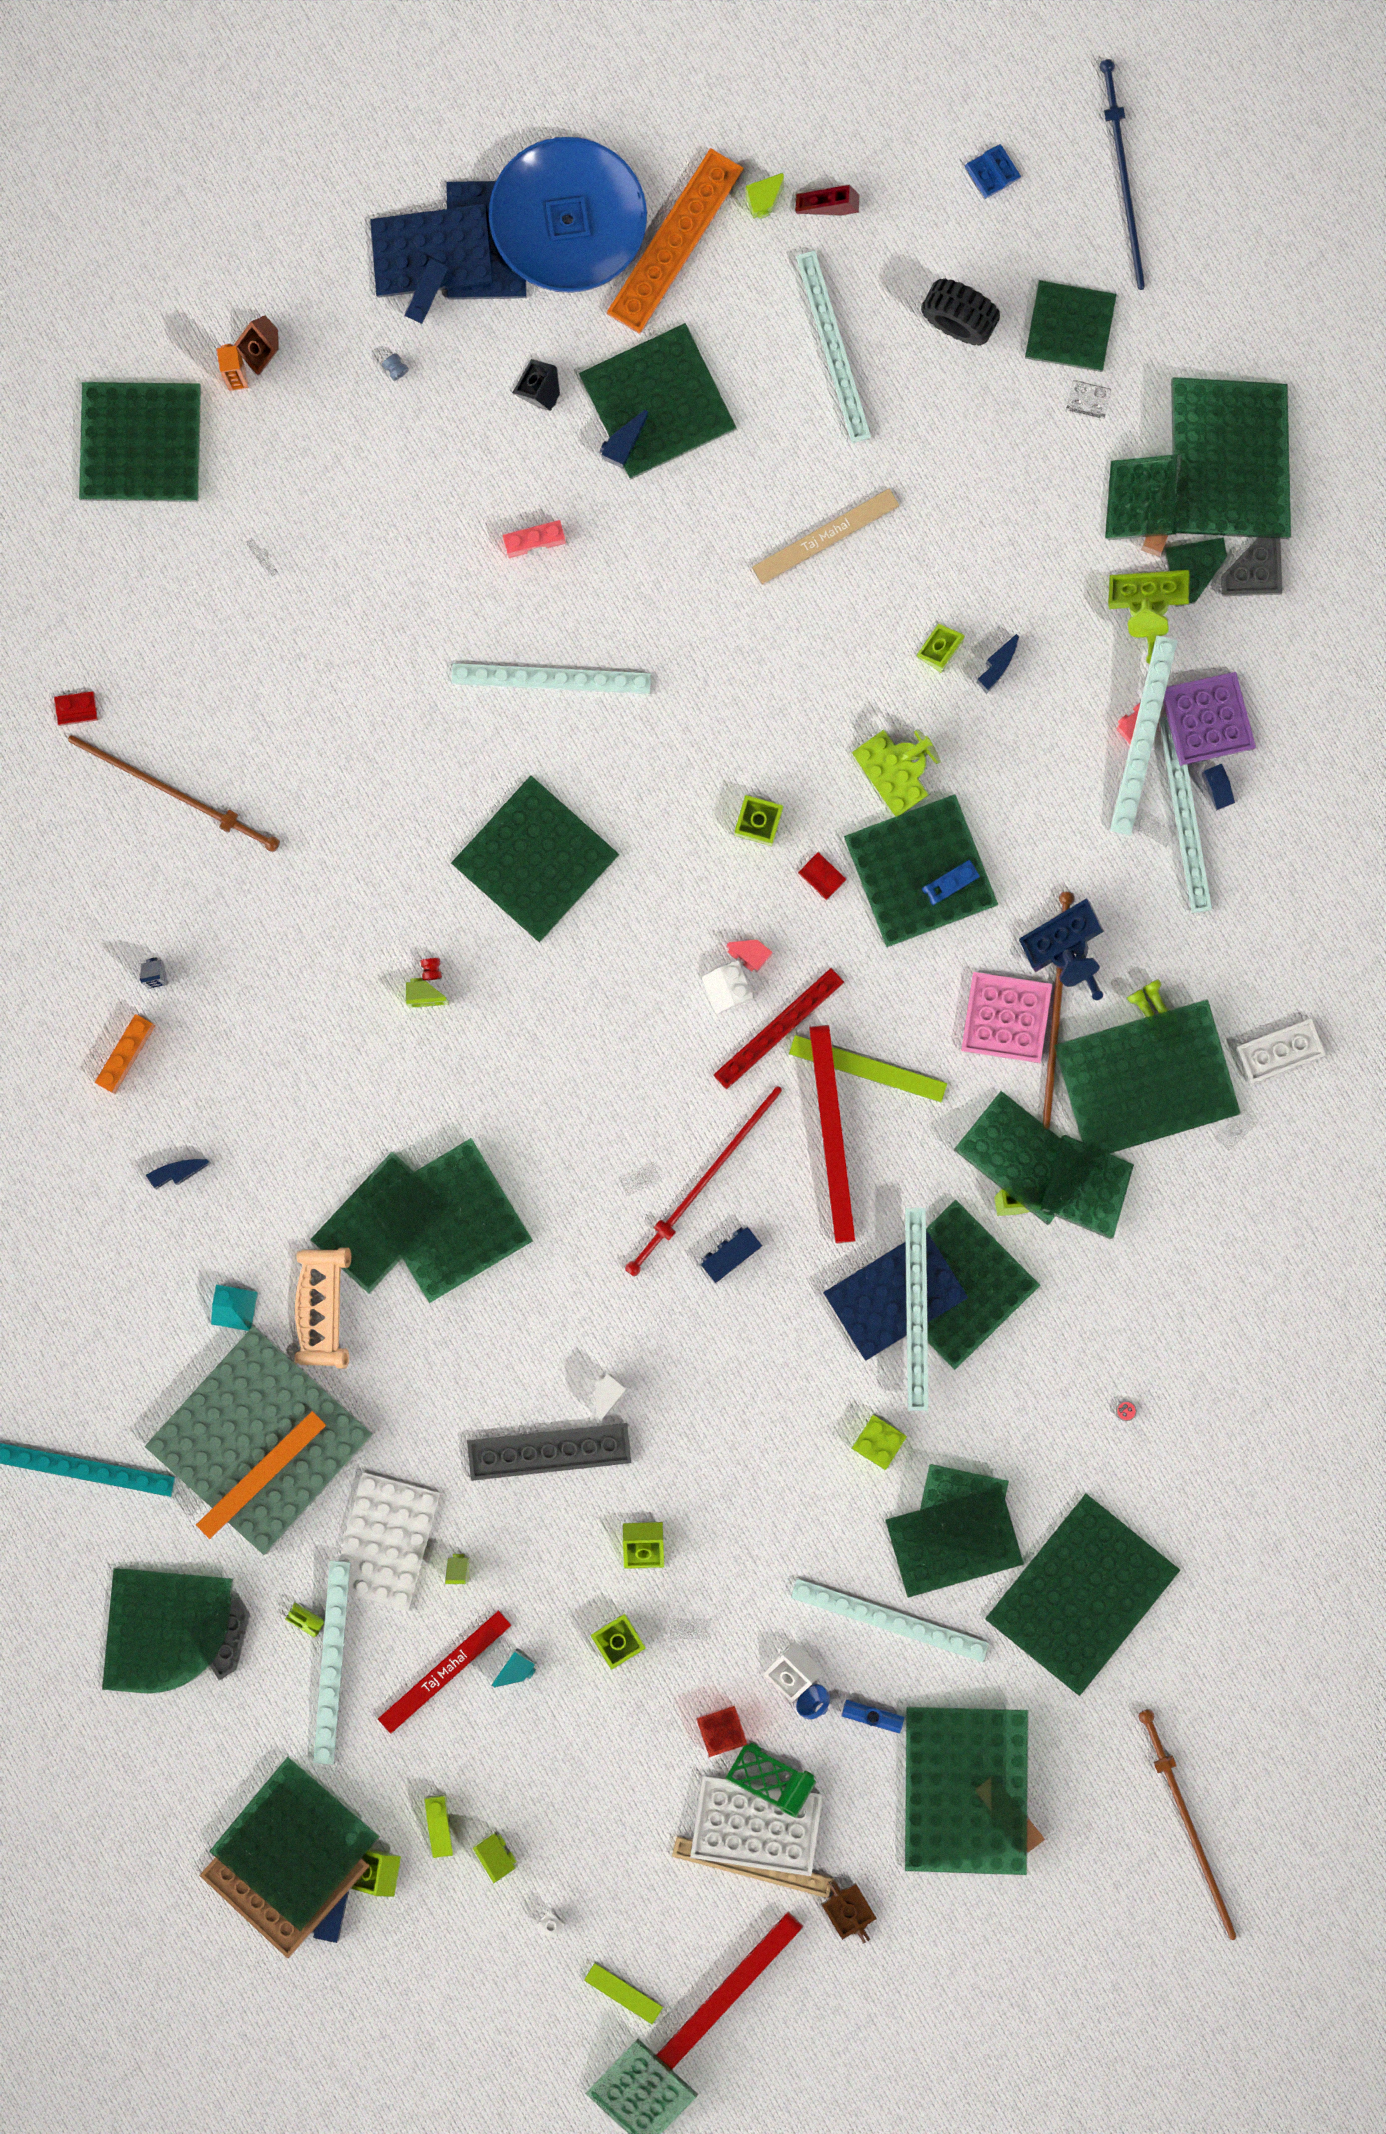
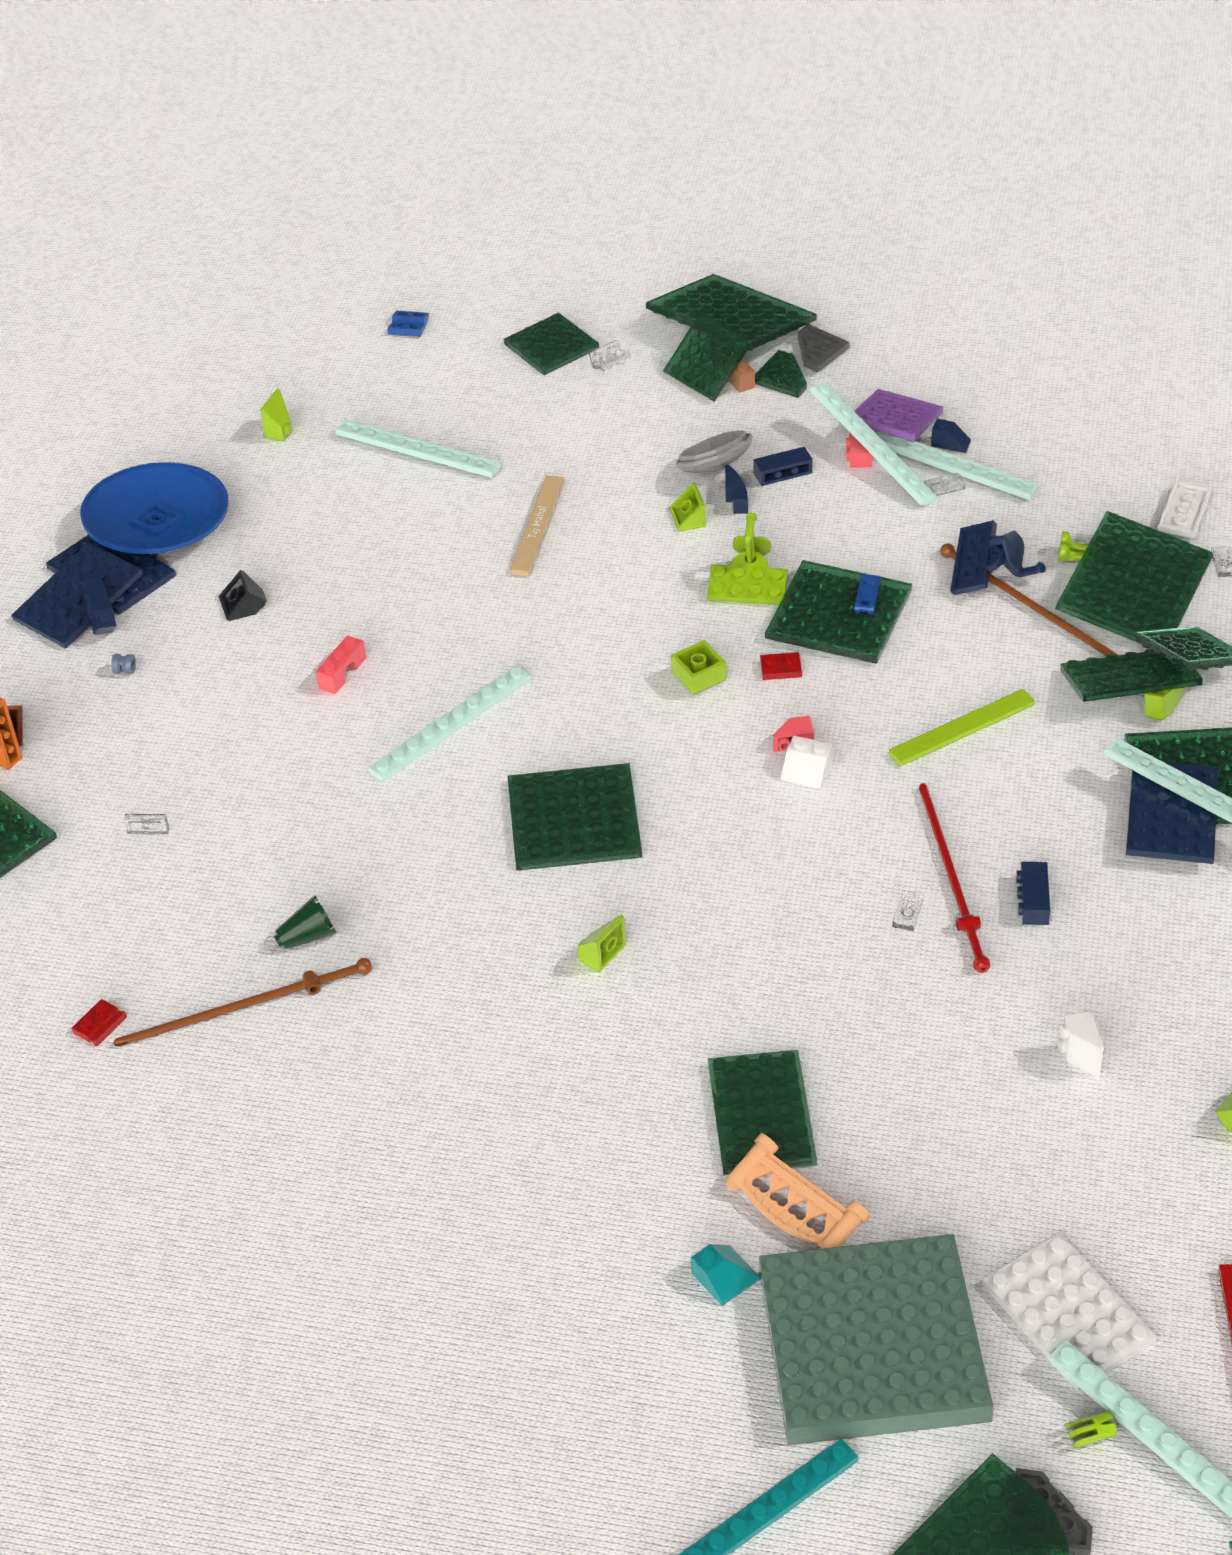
camera: 50 degrees left, 40 degrees down
(125, 1054) = (412, 1187): orange brick -> none
(153, 973) = (372, 1112): slope -> none
(176, 1171) = (555, 1225): dark blue slope -> none
(261, 1475) = (911, 1346): orange tile -> none
(268, 772) = (305, 925): none -> dark green cone
(431, 969) = (581, 928): red wheel -> none
(450, 1220) = (811, 1052): clear green plate -> none
(457, 1570) = (1154, 1260): lime slope -> none
(549, 1451) = (1094, 1127): dark grey plate -> none
(623, 441) = (340, 576): dark blue slope -> none
(669, 383) = (335, 552): clear green plate -> none
(675, 241) = (245, 481): orange plate -> none
(778, 1028) = (873, 760): red tile -> none
(829, 201) = (325, 394): dark red slope -> none
(832, 1134) = (997, 772): red beam -> none
(960, 312) = (468, 347): black tyre -> none
(1006, 1017) = (1005, 629): bright pink plate -> none
(1022, 612) = (715, 452): none -> light grey rock
(1063, 676) = (782, 466): none -> dark blue brick
(1115, 114) = (448, 257): dark blue bar -> none
(1148, 600) = (787, 383): lime plate -> none

